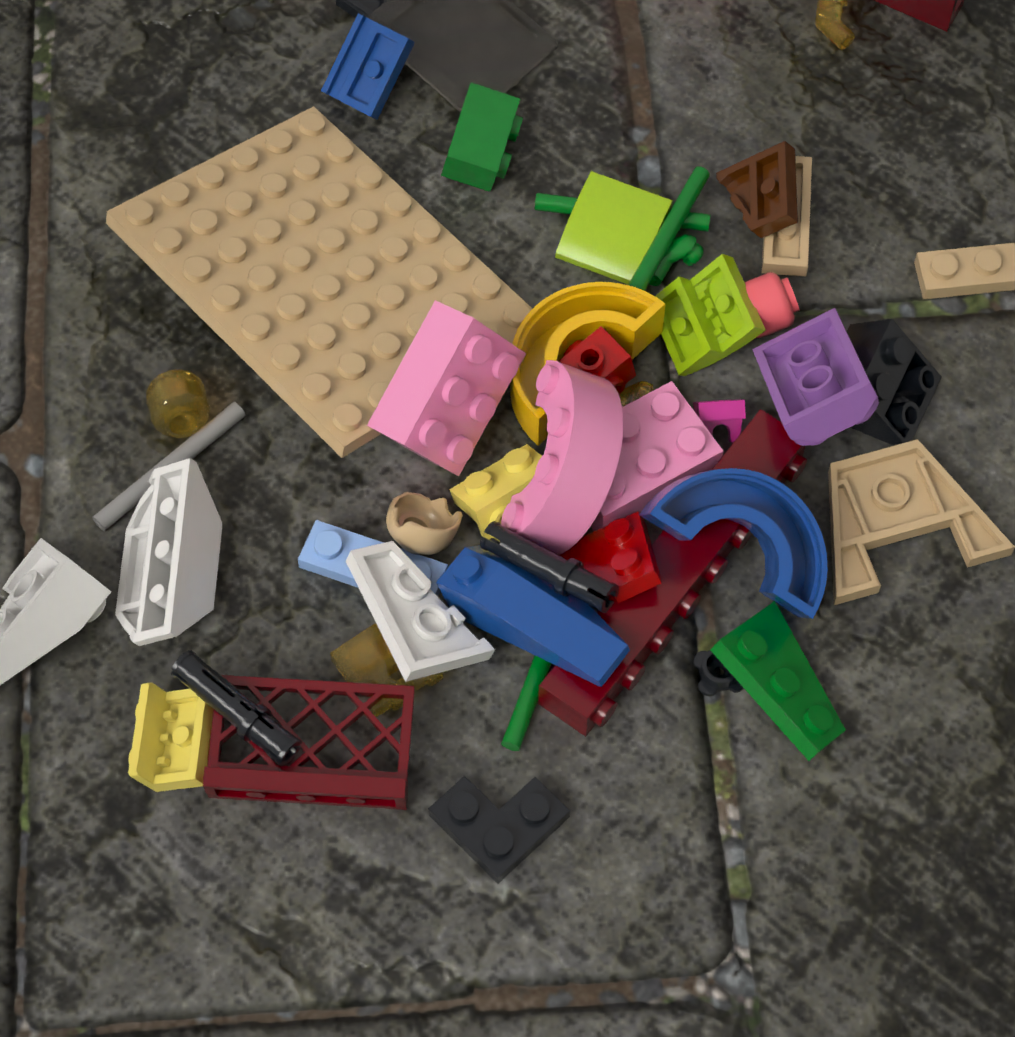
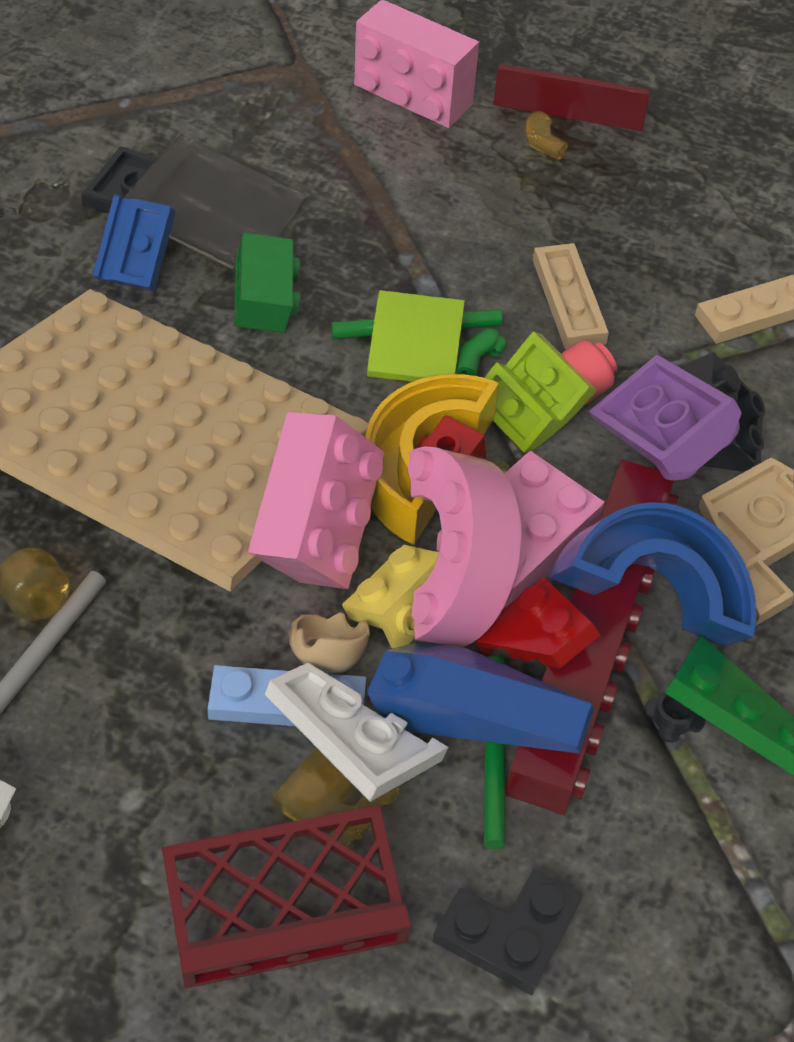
camera: 20 degrees left, 10 degrees down
(169, 556) = (68, 738): white wedge -> none
(170, 739) = (129, 931): light yellow bracket -> none
(251, 720) = (214, 884): black pin -> none
(565, 575) = (502, 650): black pin -> none
(670, 228) = (471, 322): green piece -> none
(722, 412) = (588, 473): dark pink tile -> none
(764, 189) = (545, 274): reddish brown wing -> none

